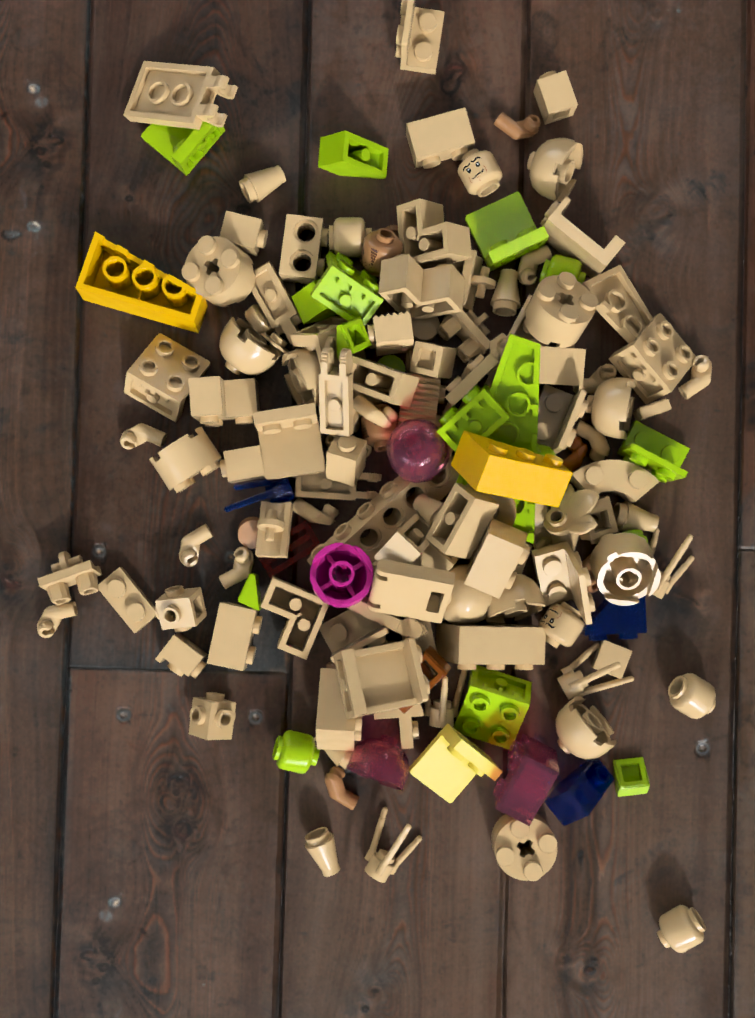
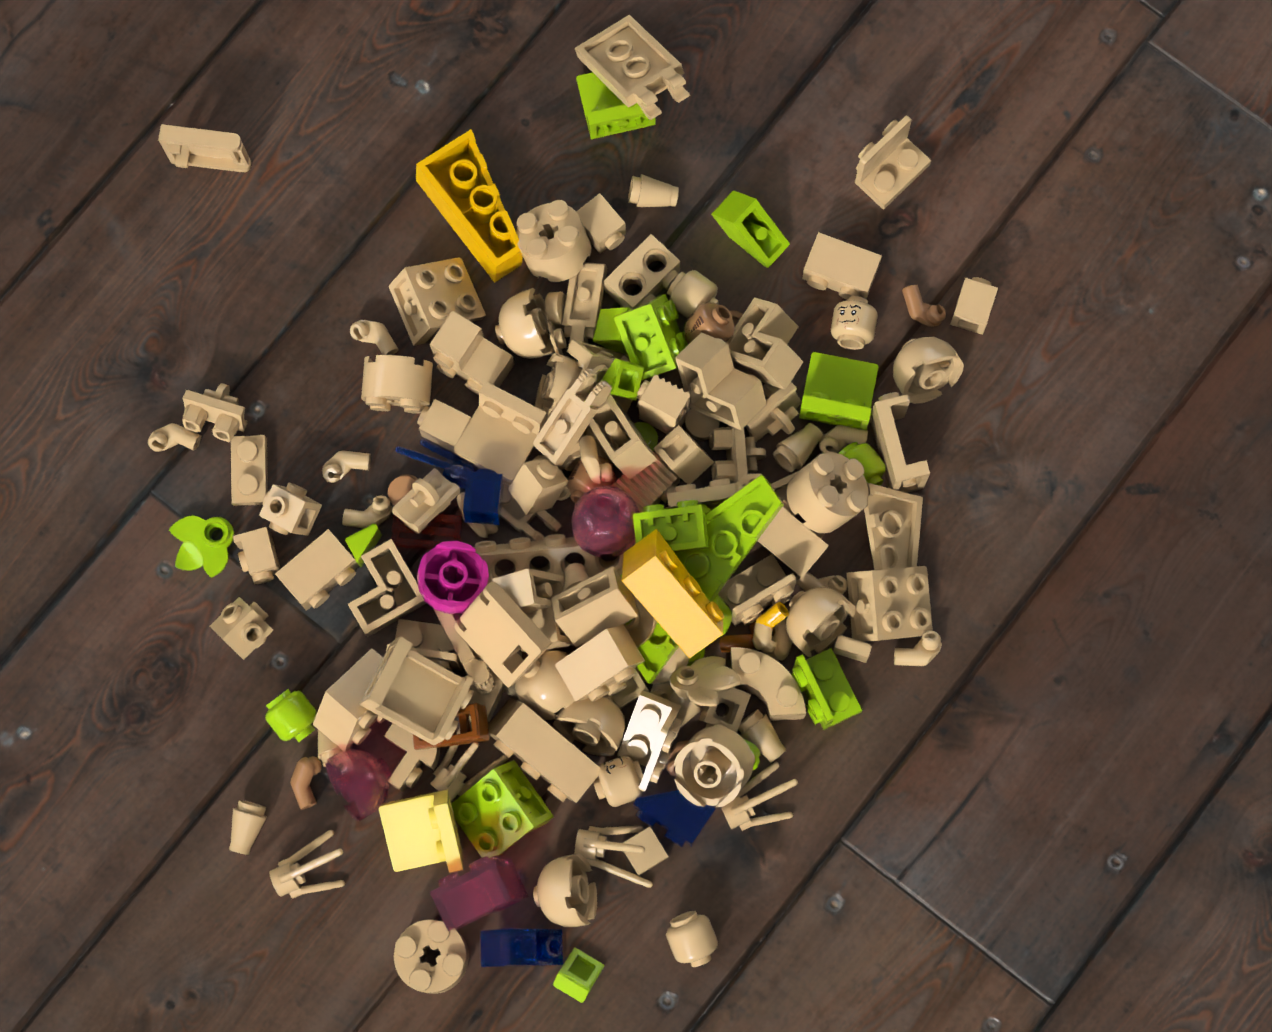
camera: 35 degrees right, 10 degrees down
(136, 681) = (199, 547): none -> lime plate
(313, 496) = (483, 497): none -> clear blue brick
(585, 447) = (764, 626): none -> arm

